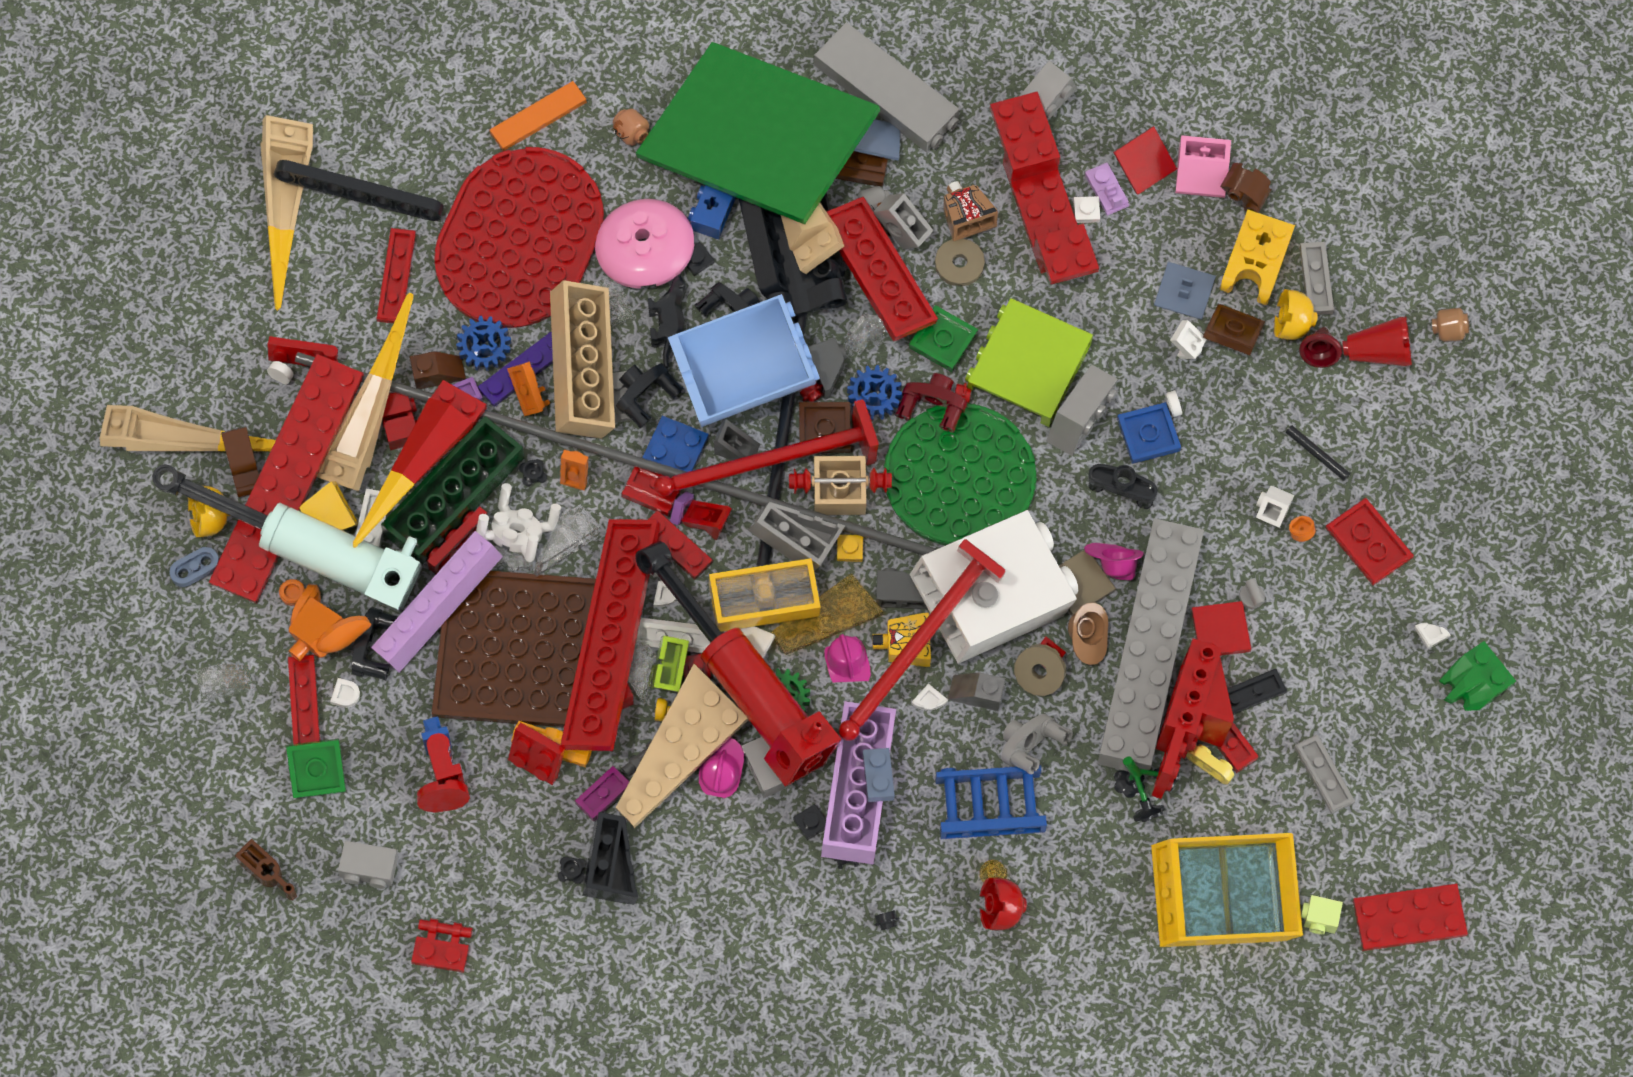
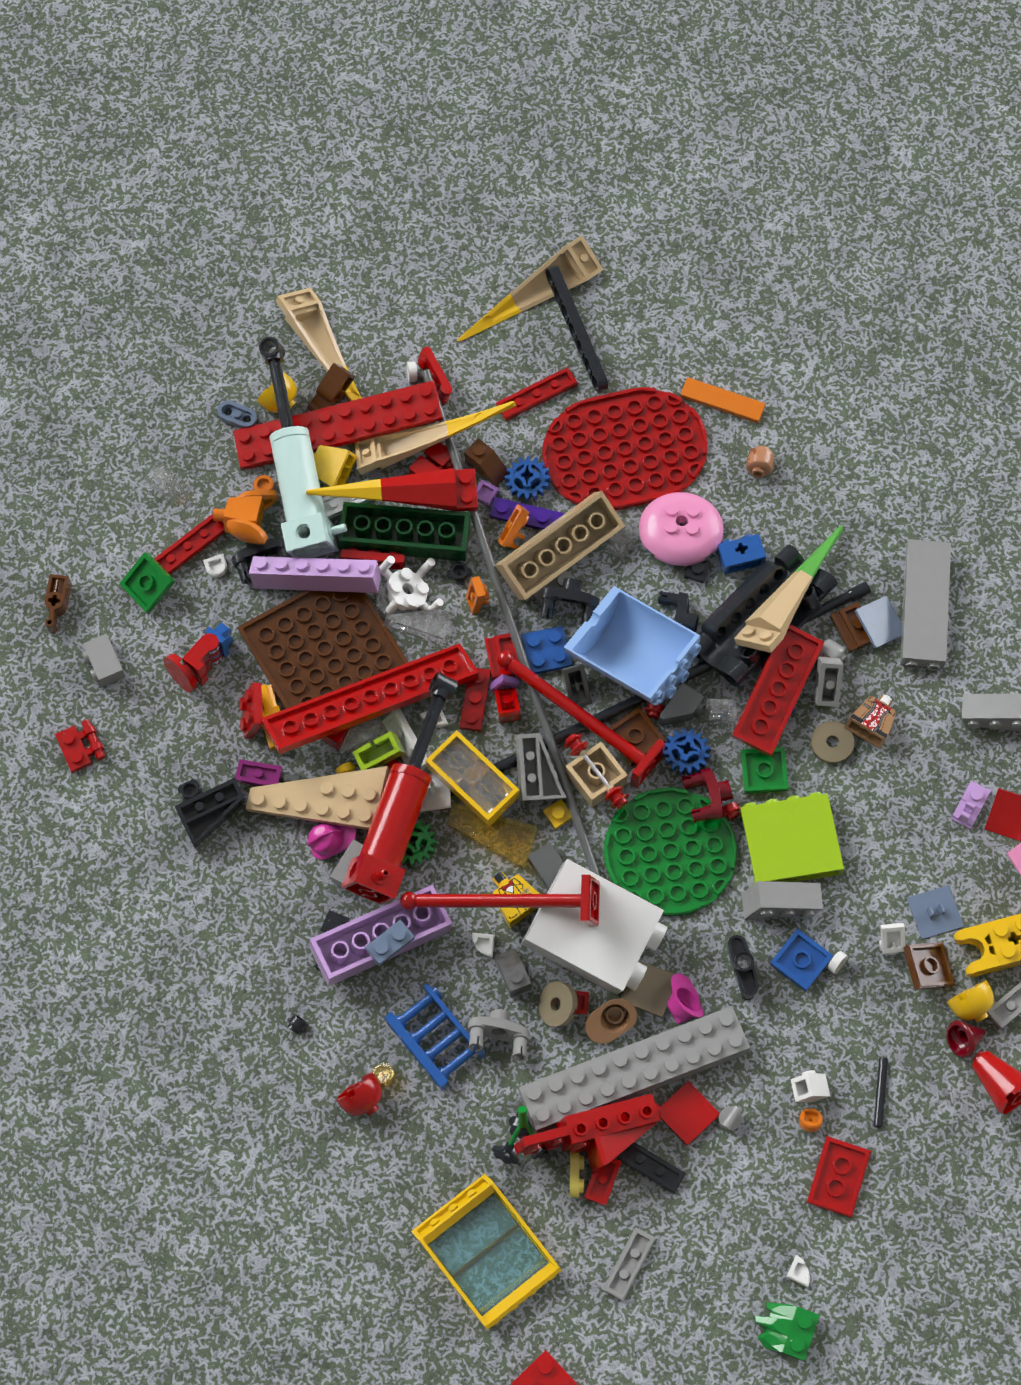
camera: 60 degrees right, 0 degrees up
(670, 316) = (641, 578): black animal -> none
(758, 132) = (817, 542): green tile -> none
(847, 660) = (473, 869): dark pink piece -> none
(984, 594) = (571, 922): light grey plate -> none
(1037, 187) = (929, 759): red bracket -> none
(1086, 209) = (943, 801): white plate -> none
(1321, 914) = (514, 1333): yellowish green brick -> none

